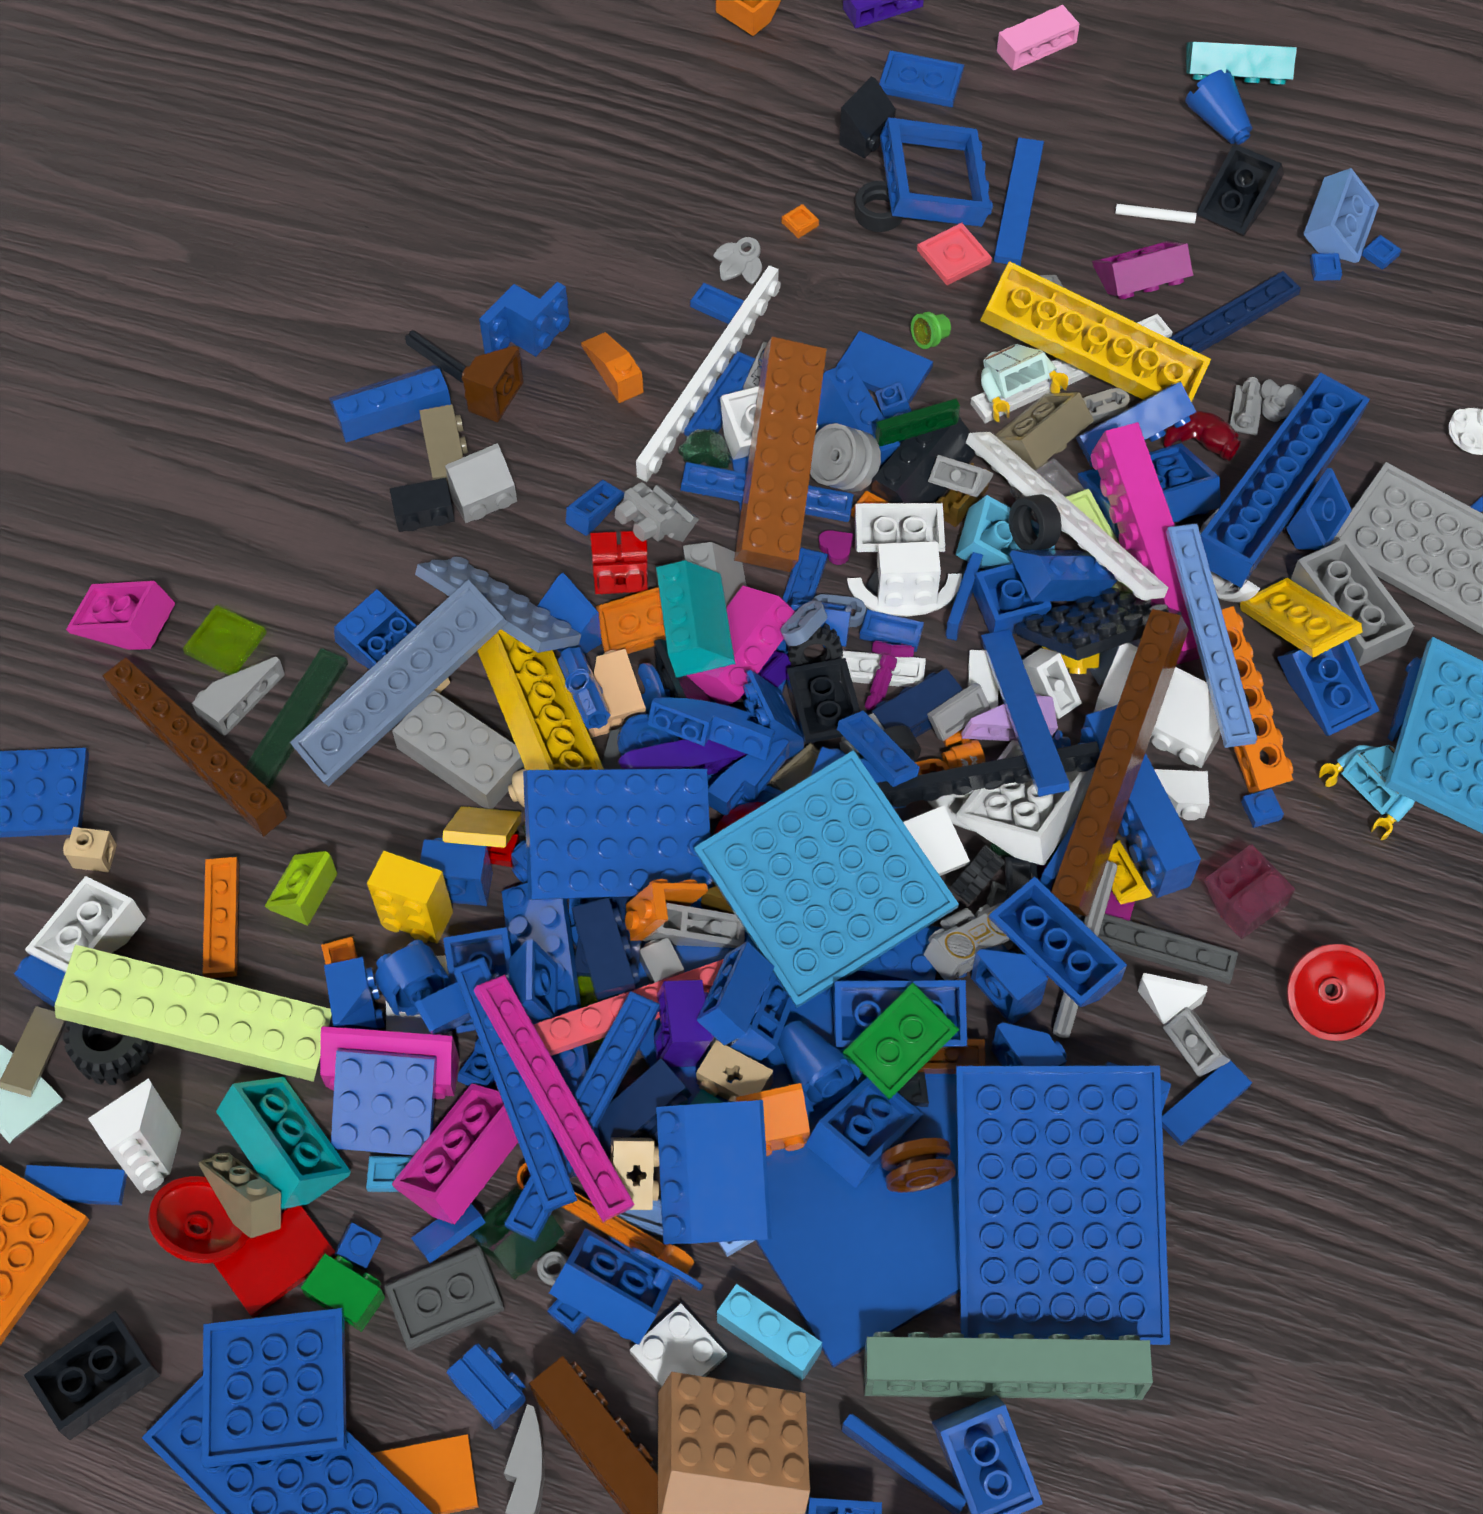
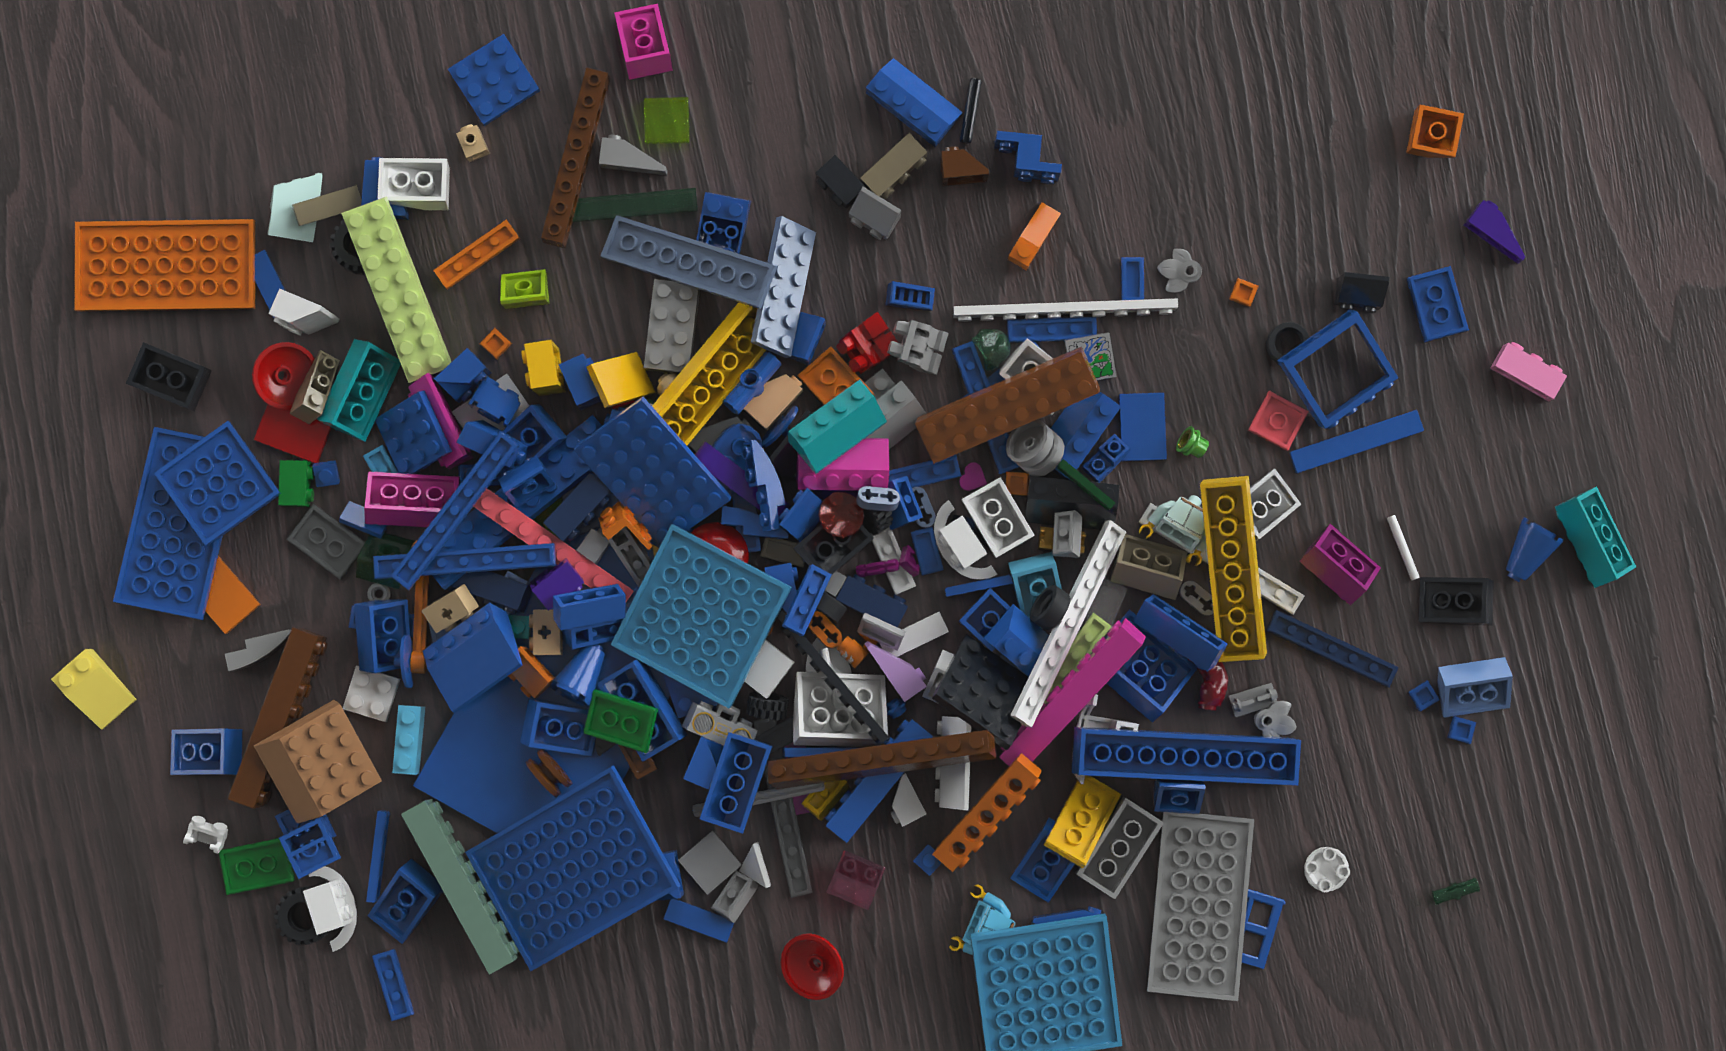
camera: 60 degrees right, 25 degrees up
(487, 1385) = (290, 598): blue brick -> none
(554, 1098) = (458, 539): dark pink tile -> none
(797, 671) = (841, 514): none -> clear red dish
(1025, 714) = (892, 677): blue tile -> none
(1026, 1047) = (659, 803): blue slope -> none
(1138, 1043) = (710, 862): none -> light grey tile
(1211, 636) = (1004, 773): medium blue tile -> none

